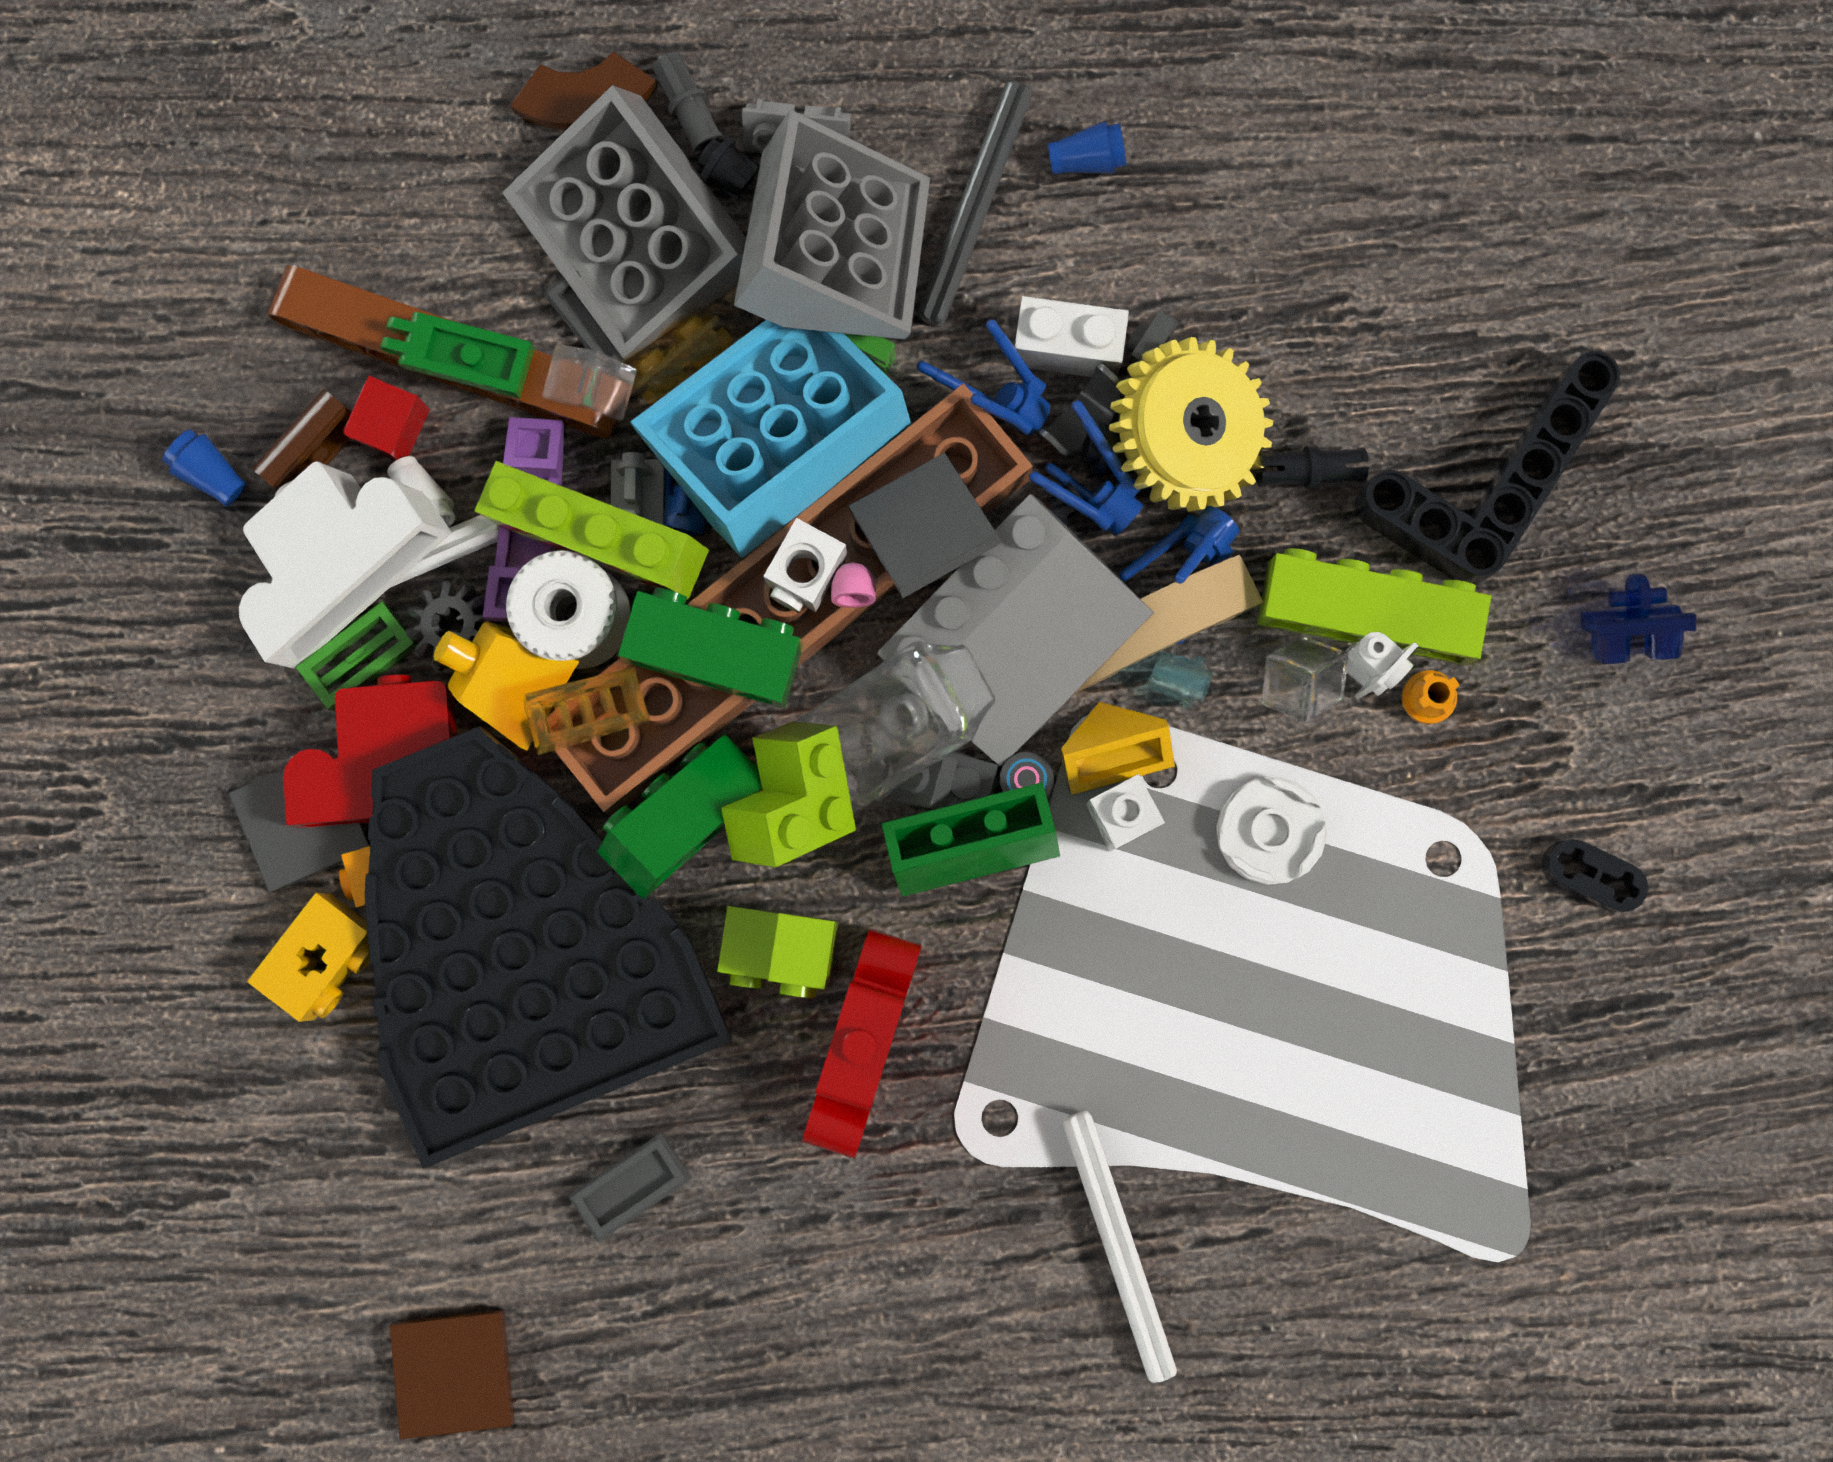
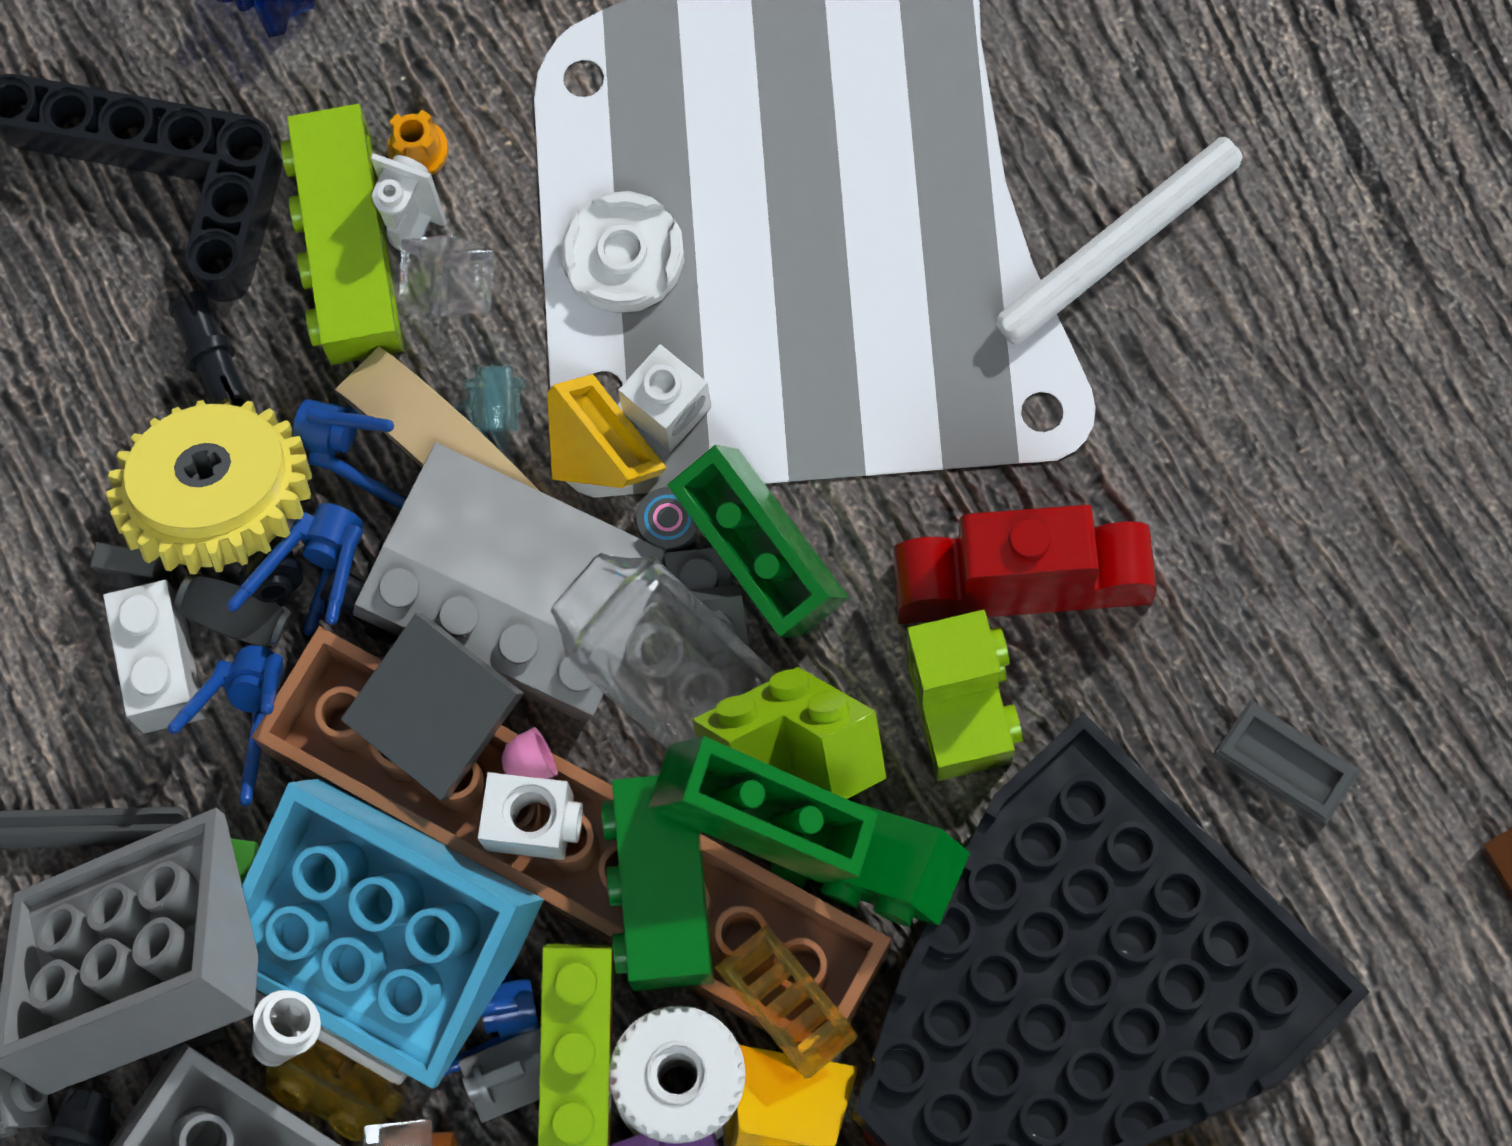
camera: 105 degrees left, 10 degrees down
(714, 341) = (284, 1027): none -> white cone
(720, 741) = (763, 810): none -> green brick

